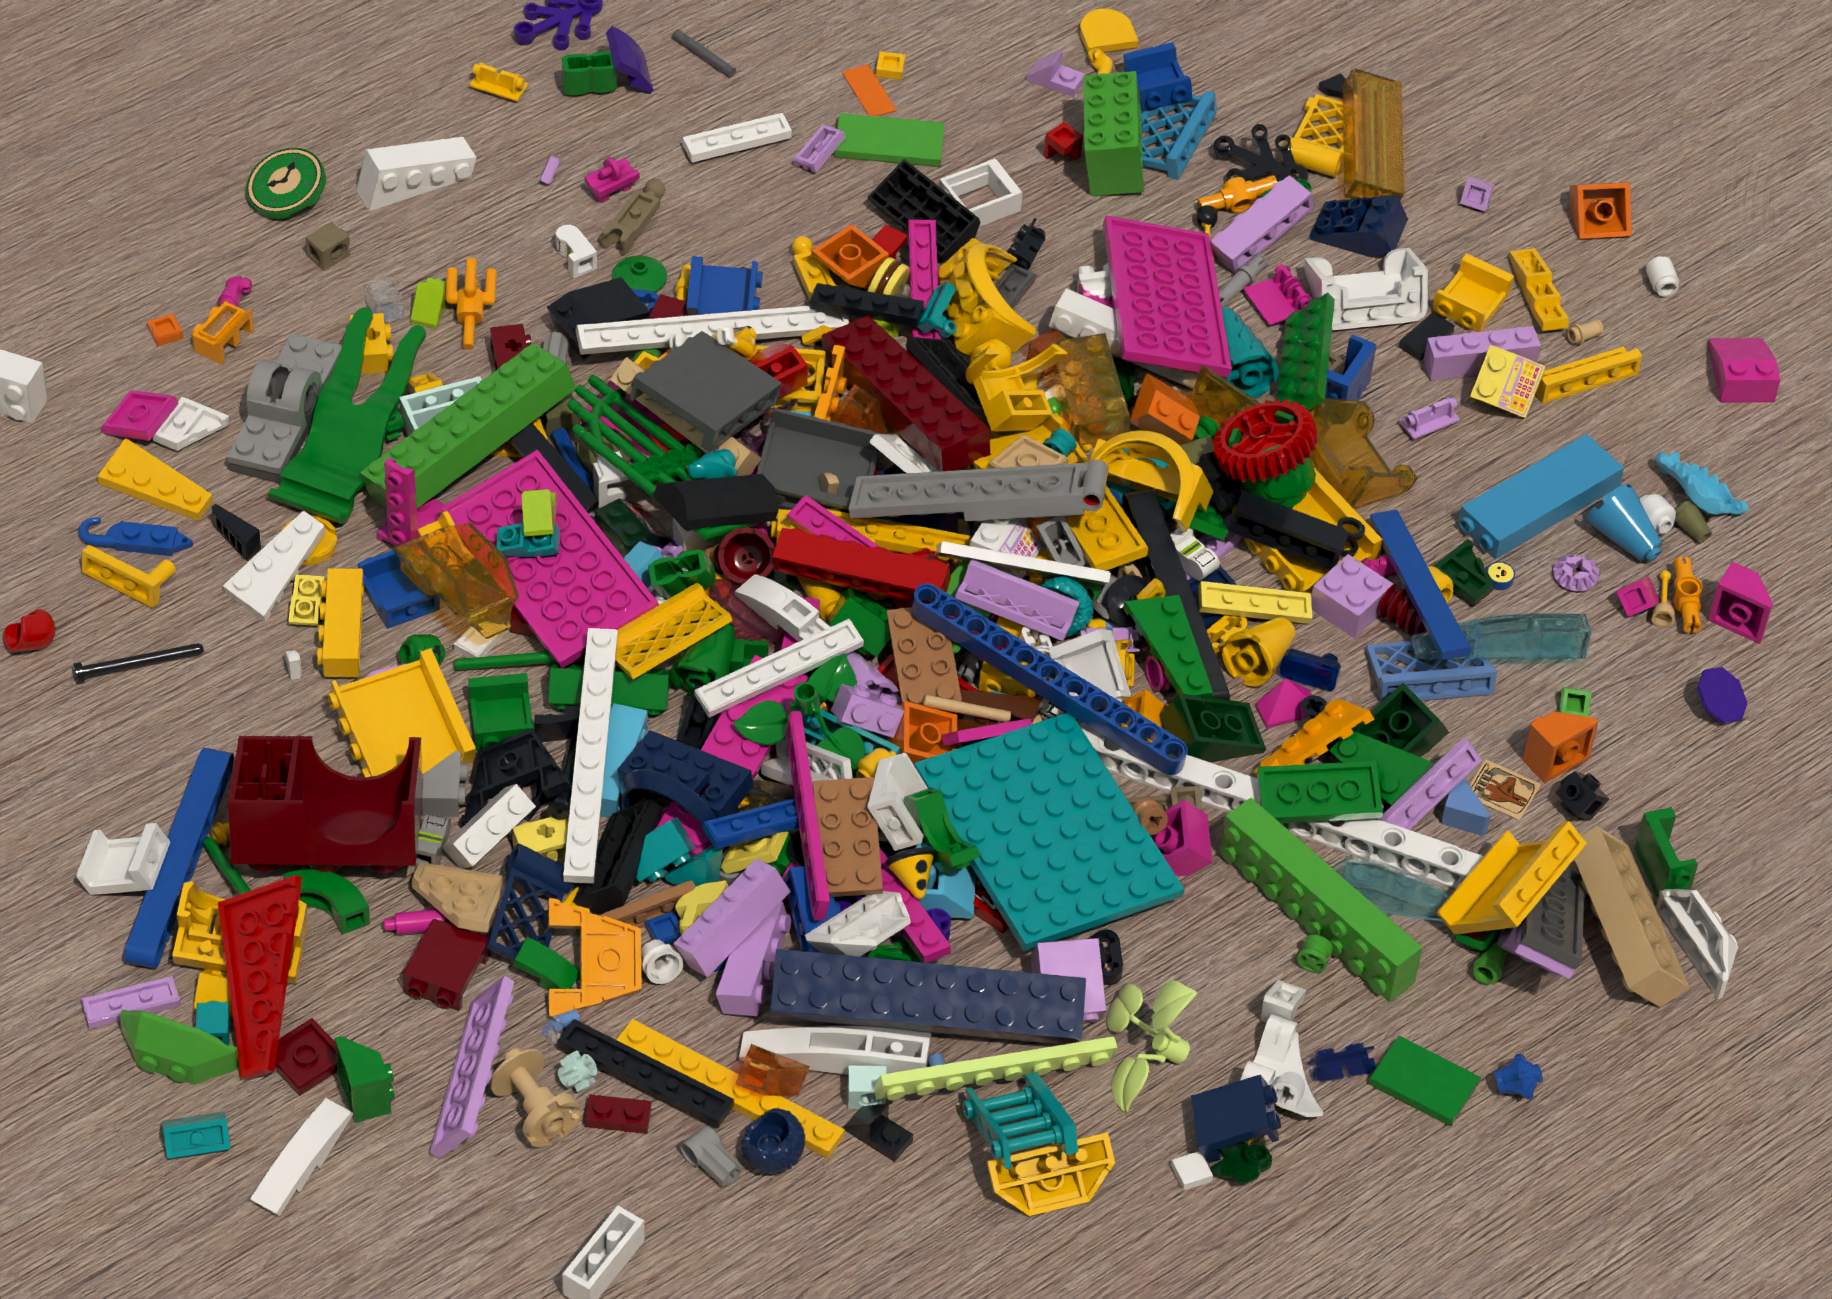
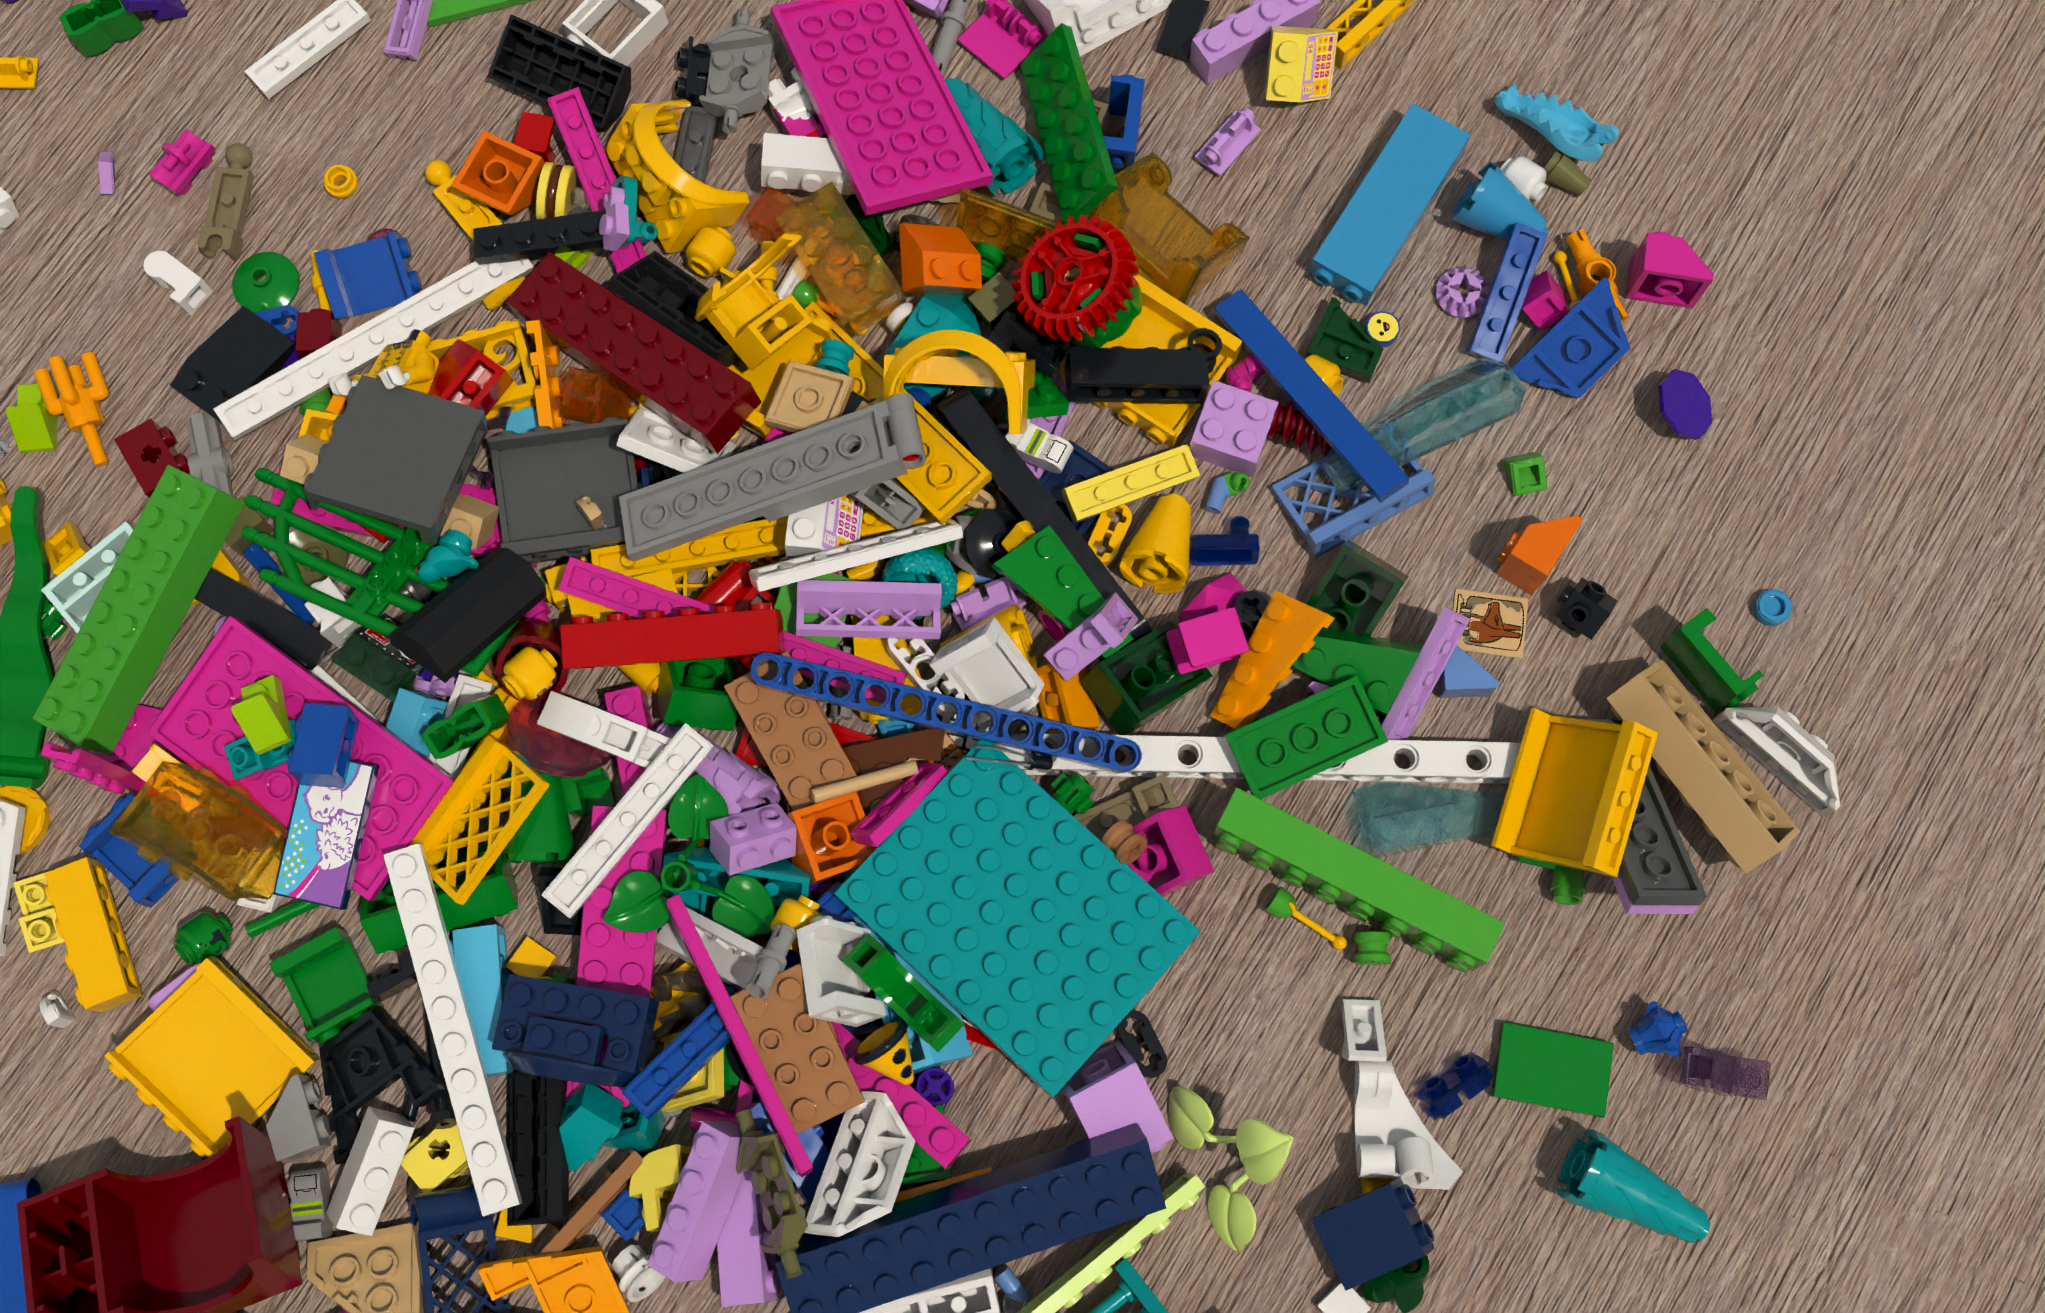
camera: 15 degrees left, 25 degrees up
(549, 605) = (326, 839): none -> tile
(576, 542) = (323, 745): none -> blue brick
(725, 228) = (335, 175): none -> yellow plate
(745, 554) = (530, 673): none -> yellow head
(793, 906) = (770, 1179): none -> olive plate
(853, 767) = (771, 961): none -> light grey pin
(928, 306) = (615, 223): none -> lavender plate
(1062, 252) = (736, 53): none -> light grey plate
(1103, 742) = (1033, 761): none -> piece
(1125, 777) = (1073, 792): none -> green gear
(1180, 674) = (1092, 637): none -> lavender bracket
(1256, 906) = (1284, 905): none -> hinge
(1270, 713) = (1207, 641): none -> dark pink piece
(1329, 634) = (1224, 487): none -> arm
(1446, 1161) = (1618, 1185): none -> teal cone
(1552, 1119) = (1724, 1074): none -> clear purple brick
(1610, 575) = (1507, 292): none -> blue plate
(1649, 629) = (1577, 346): none -> blue wing
(1736, 851) = (1772, 607): none -> dark azure tile

